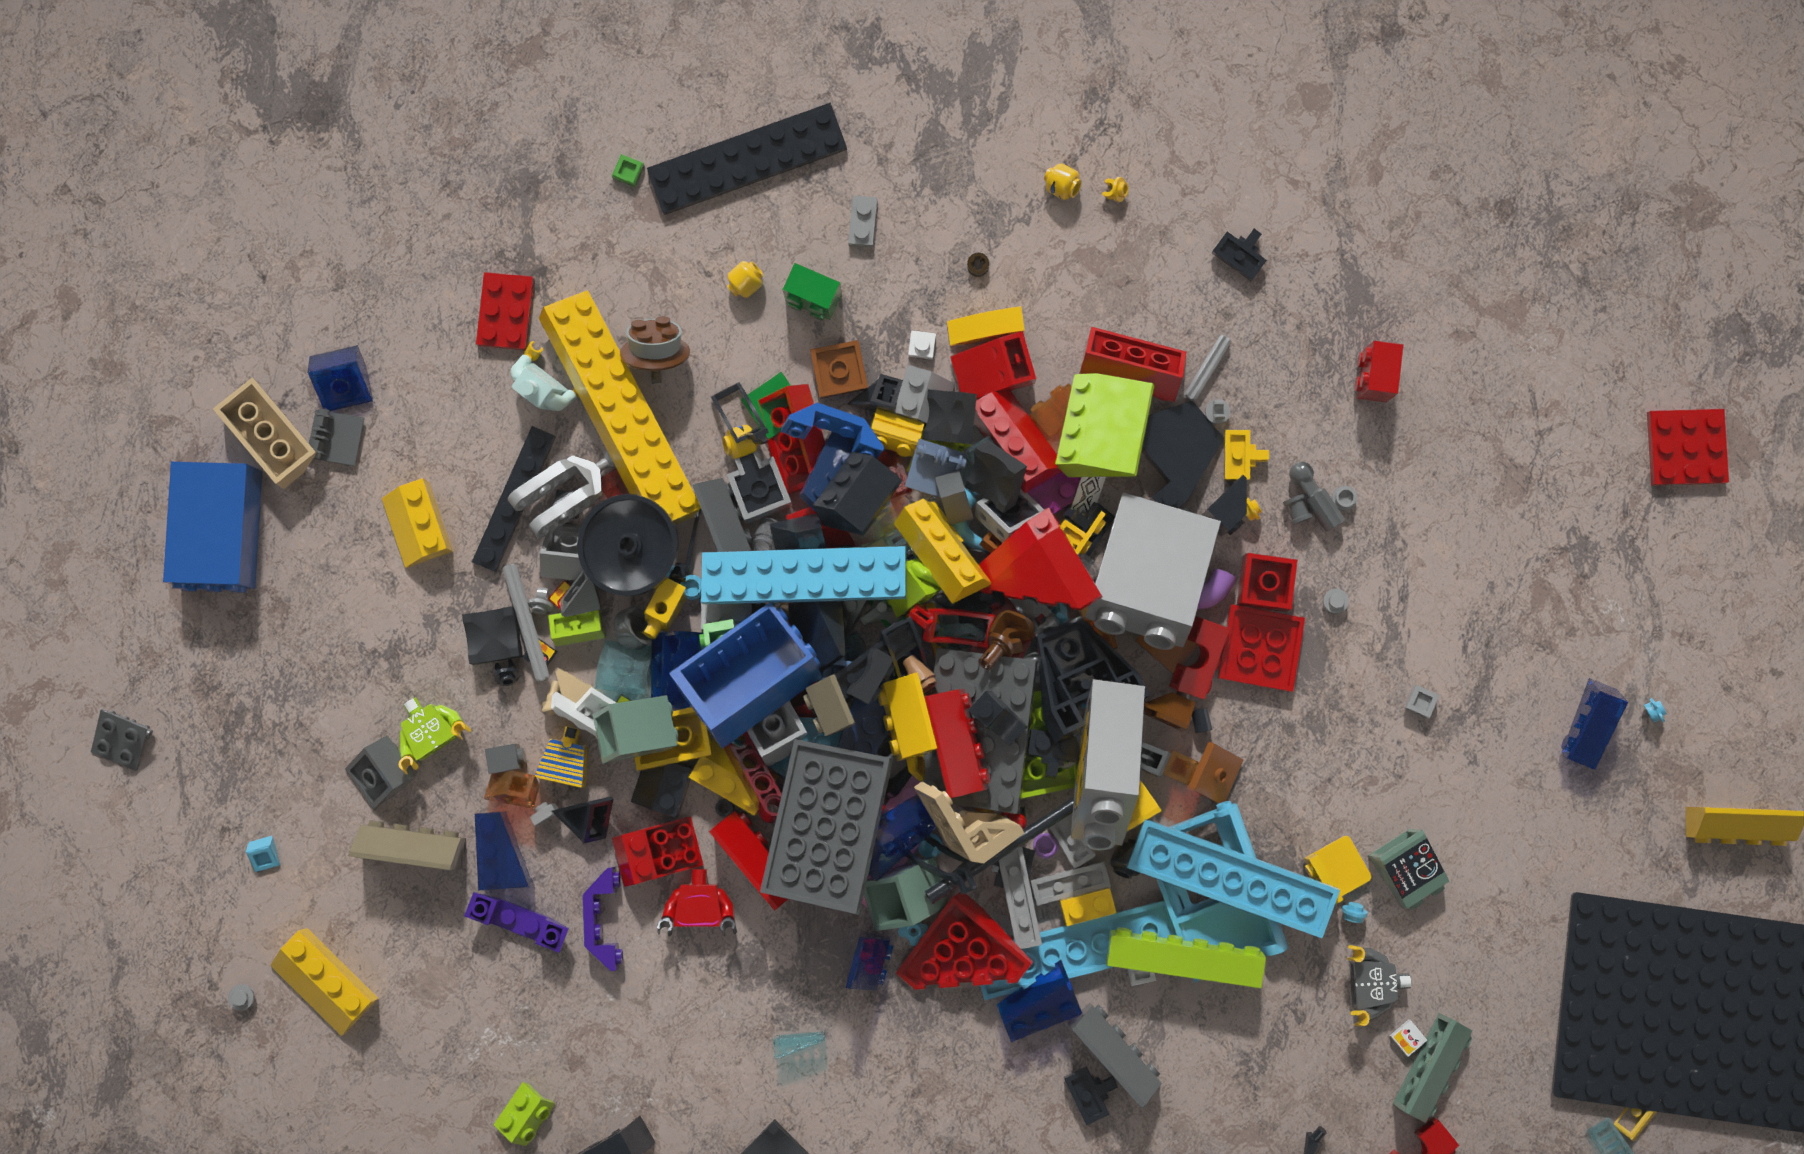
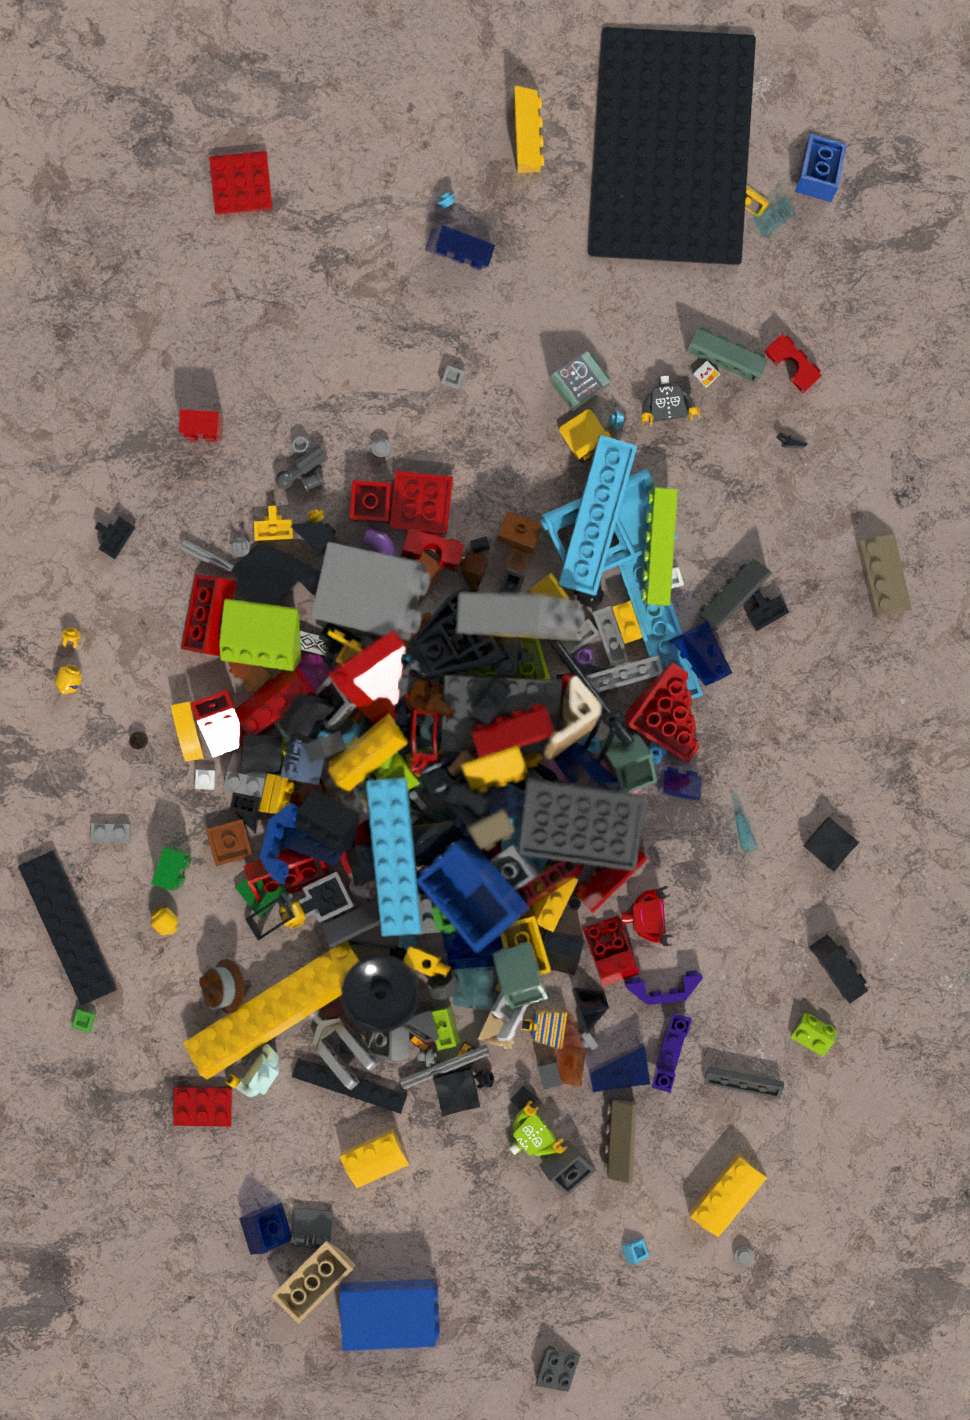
camera: 100 degrees left, 5 degrees up
(468, 1015) = (744, 1082): none -> dark grey plate
(477, 721) = (522, 1097): none -> black tile

